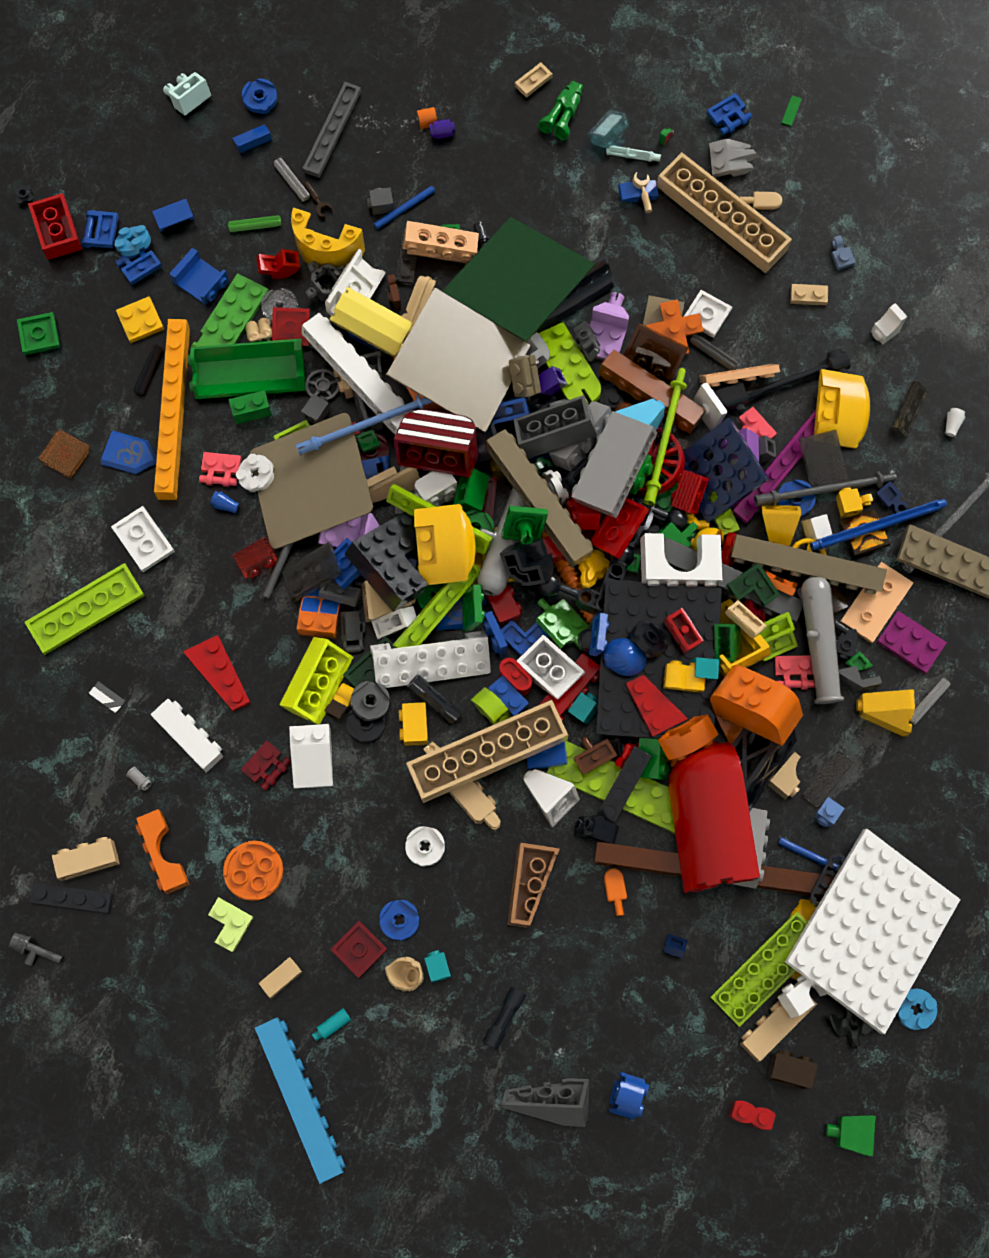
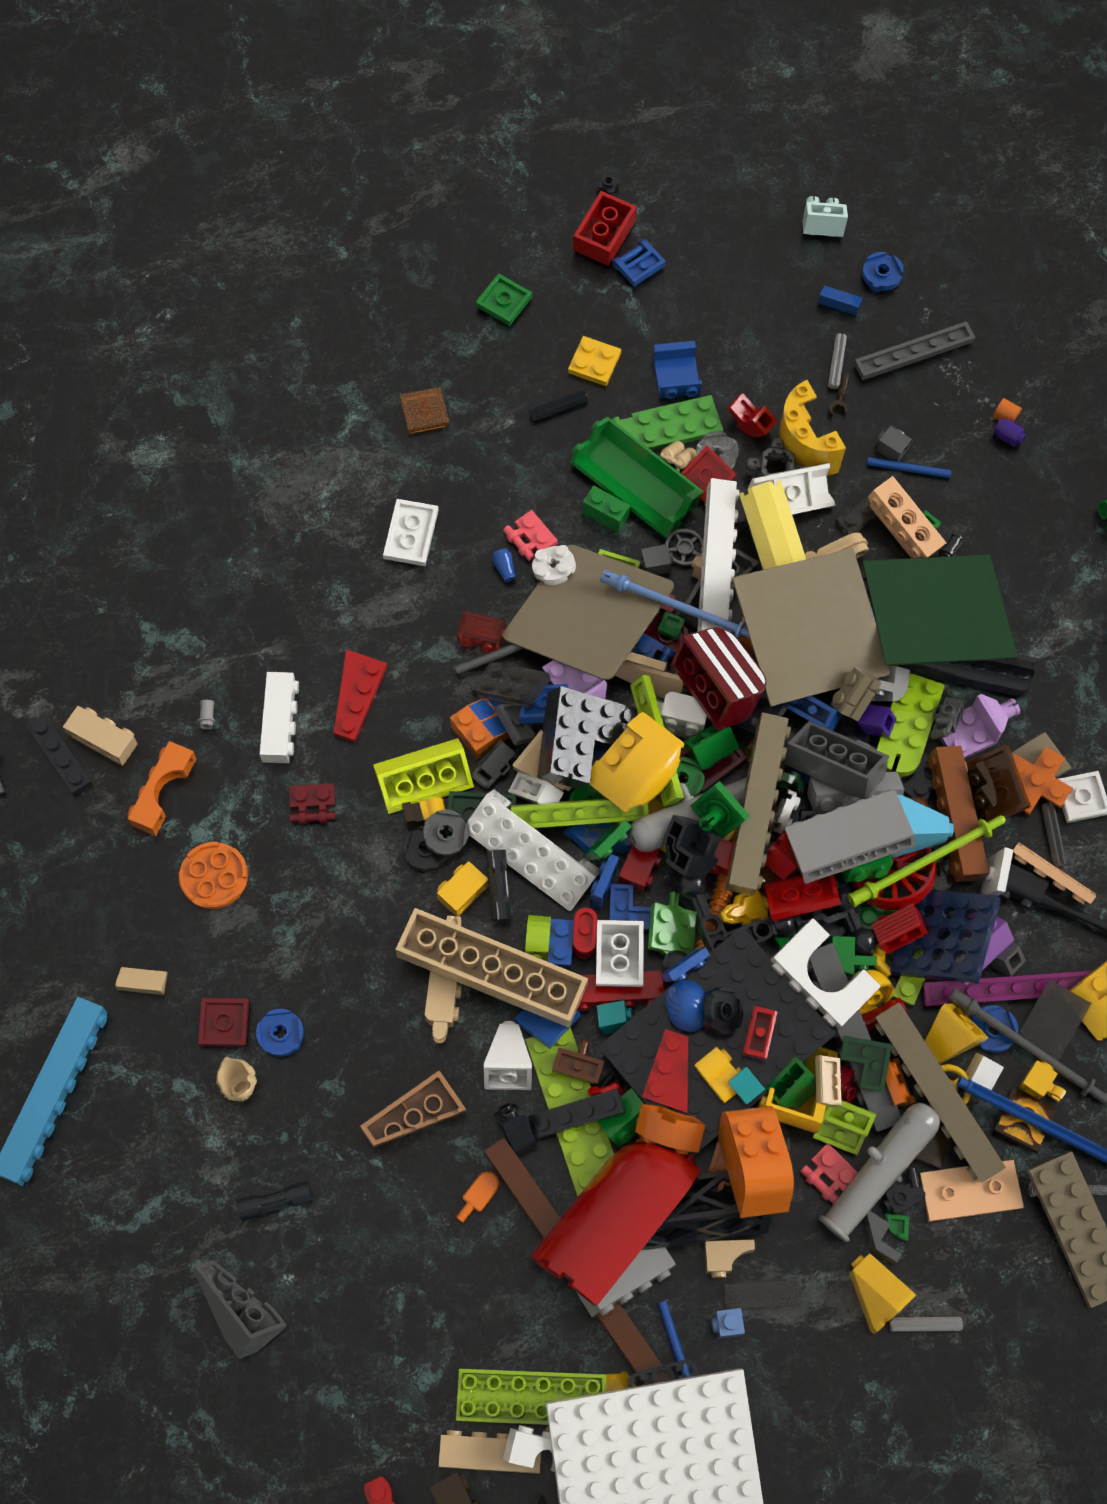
camera: 45 degrees right, 5 degrees down
(84, 609) = (309, 543): lime plate -> none
(107, 697) = (252, 628): sticker -> none
(128, 453) = (472, 456): blue tile -> none
(132, 240) = (654, 293): dark azure plate -> none
(139, 268) = (638, 320): blue plate -> none
(172, 214) = (708, 301): blue hinge -> none
(172, 410) = (541, 453): light orange brick -> none
(235, 923) = (156, 900): yellowish green plate -> none
(254, 223) = (768, 368): bright green axle -> none
(311, 756) = (354, 830): white slope -> none
(332, 1024) = (139, 1059): teal cylinder -> none
(393, 295) = (821, 529): reddish brown plate -> none
(436, 847) = (357, 984): white plate -> none
(437, 966) = (267, 1101): teal brick -> none
(628, 1096) = (299, 1372): blue brick -> none
(675, 946) = (476, 1293): dark blue plate -> none
(755, 422) = (1025, 932): coral hinge -> none
(889, 496) = (1083, 1110): dark blue plate -> none
(911, 642) = (966, 1257): magenta plate -> none

